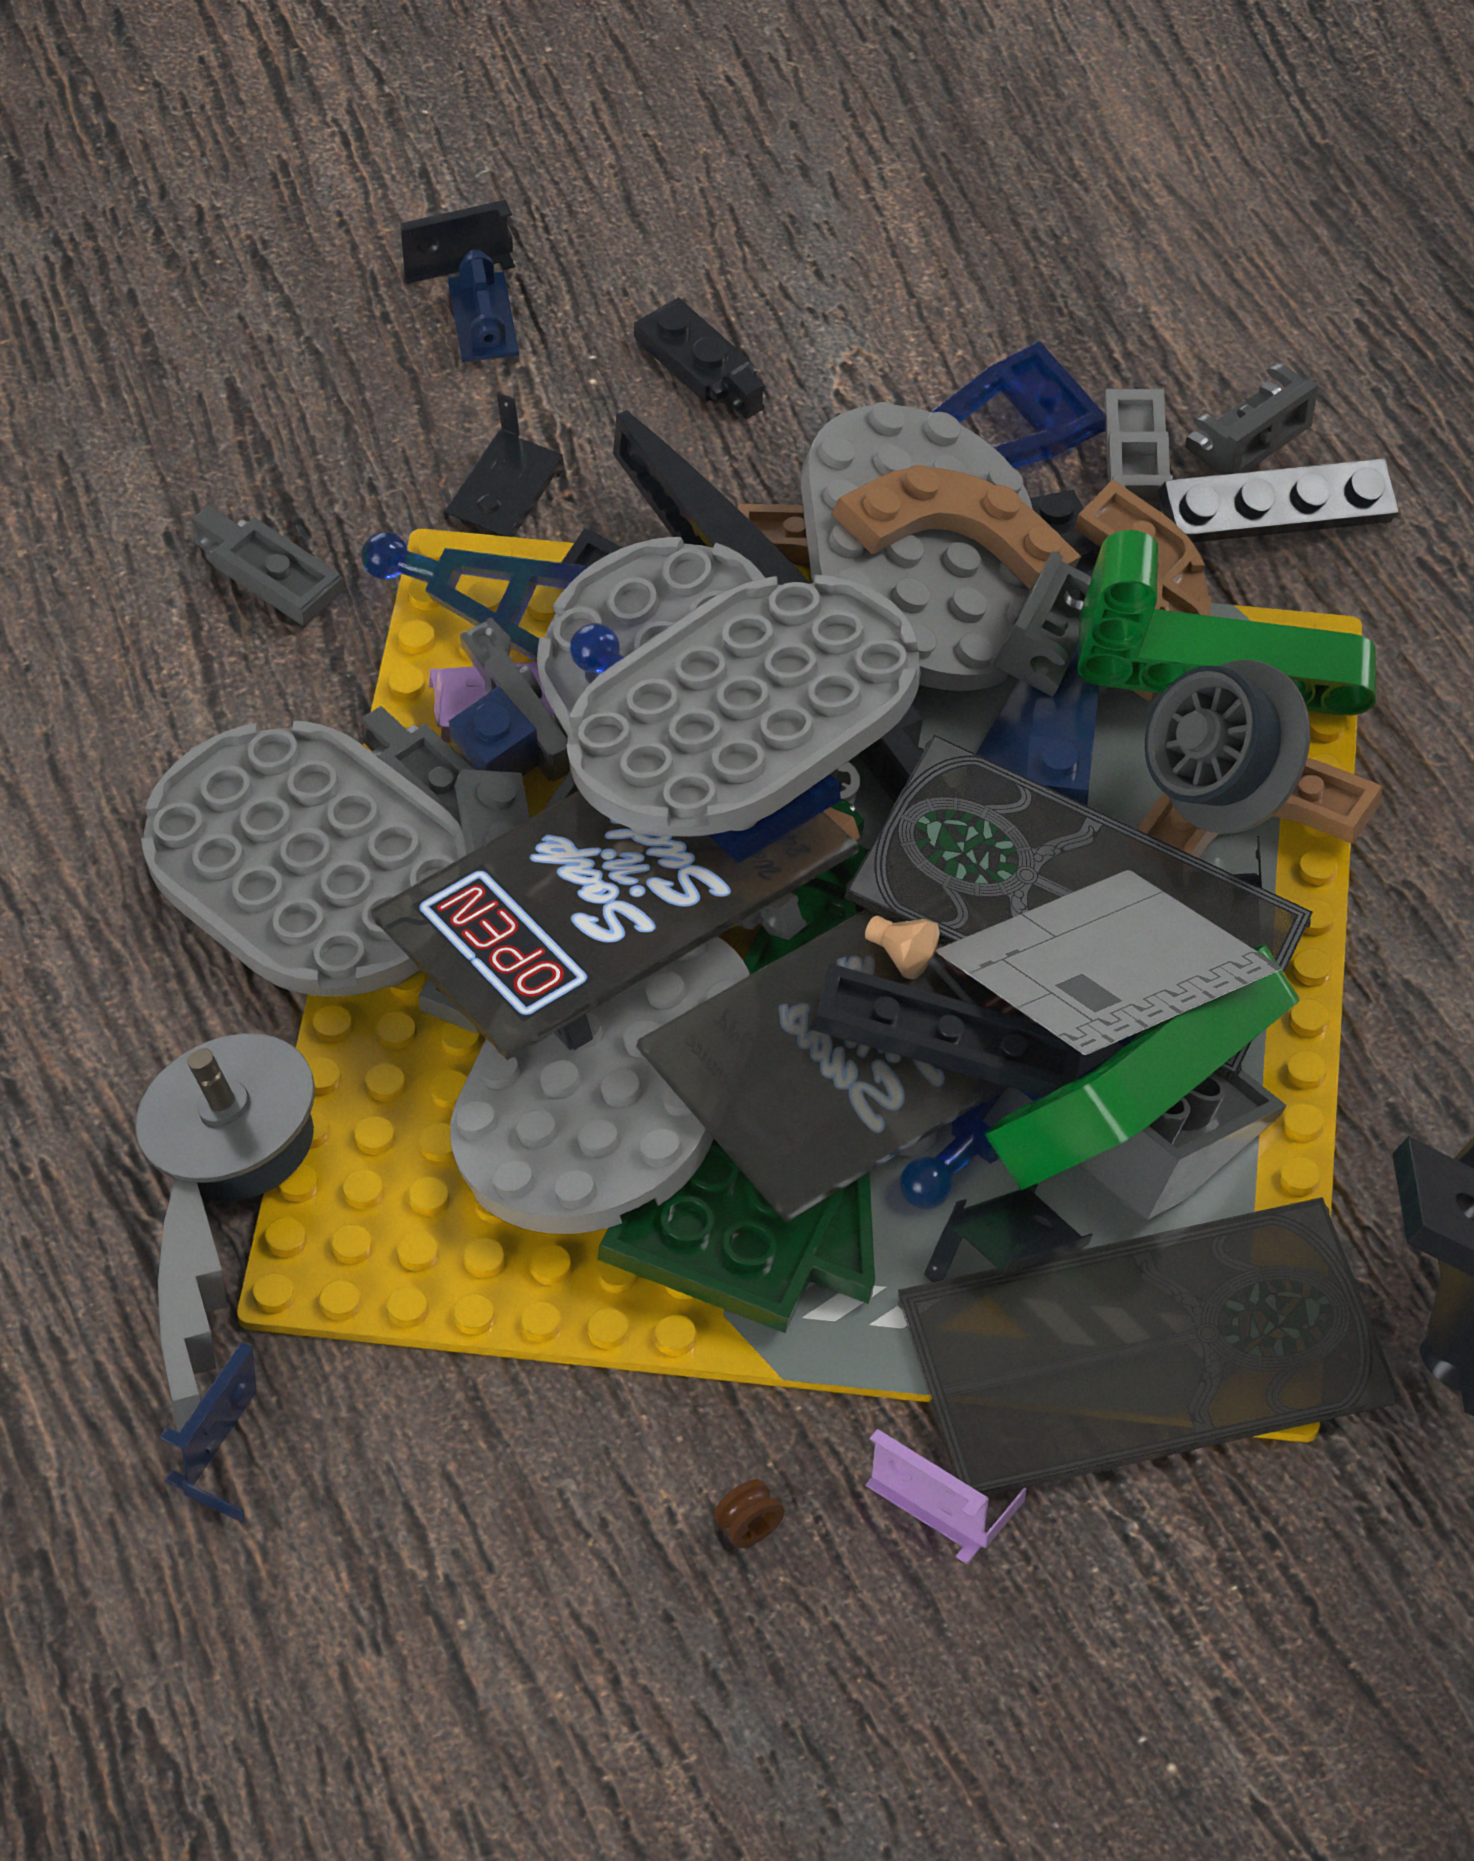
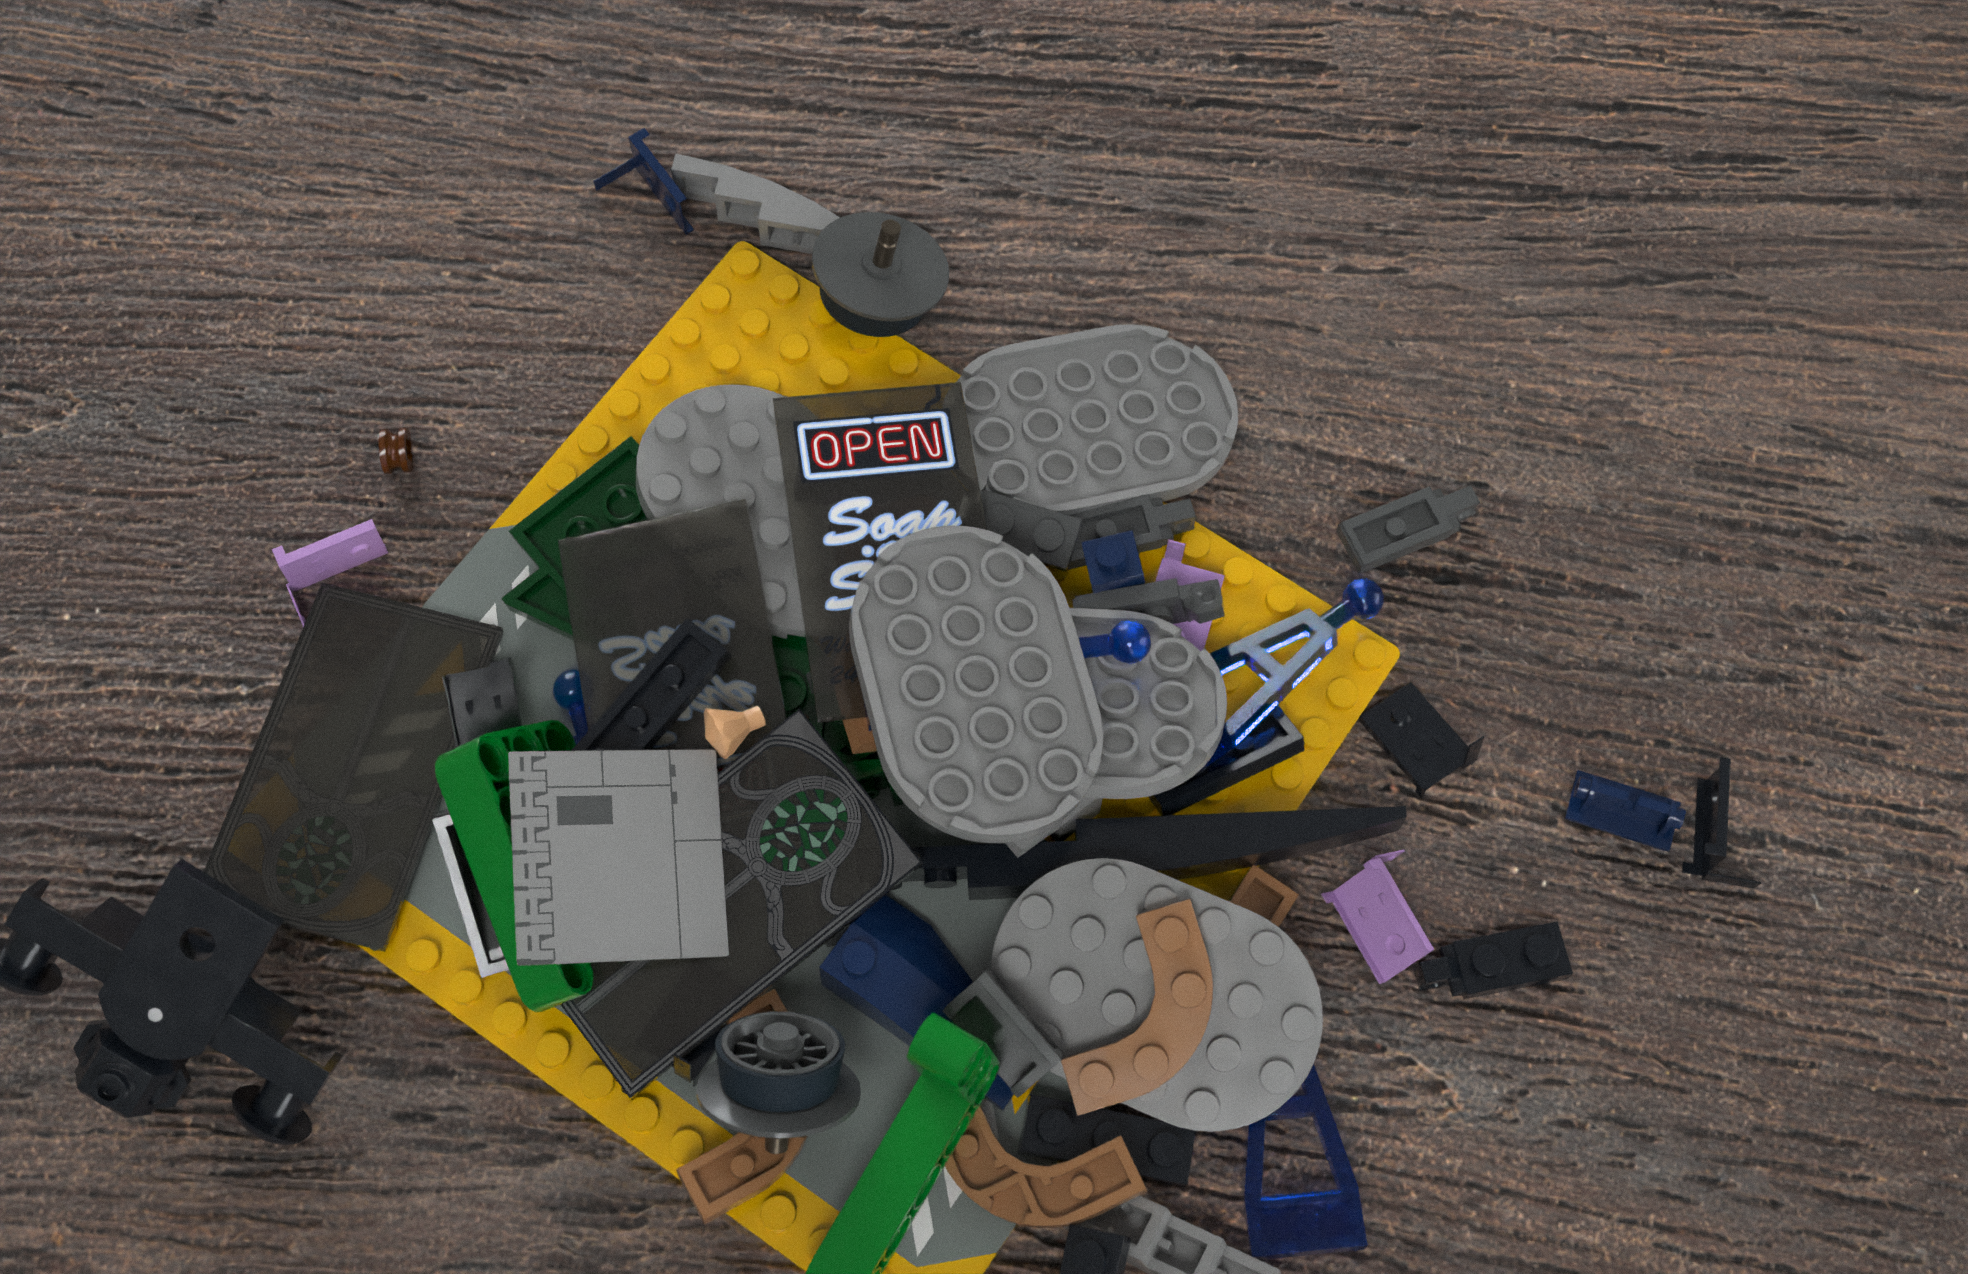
camera: 115 degrees right, 15 degrees up
(724, 436) = (1380, 919): none -> lavender piece

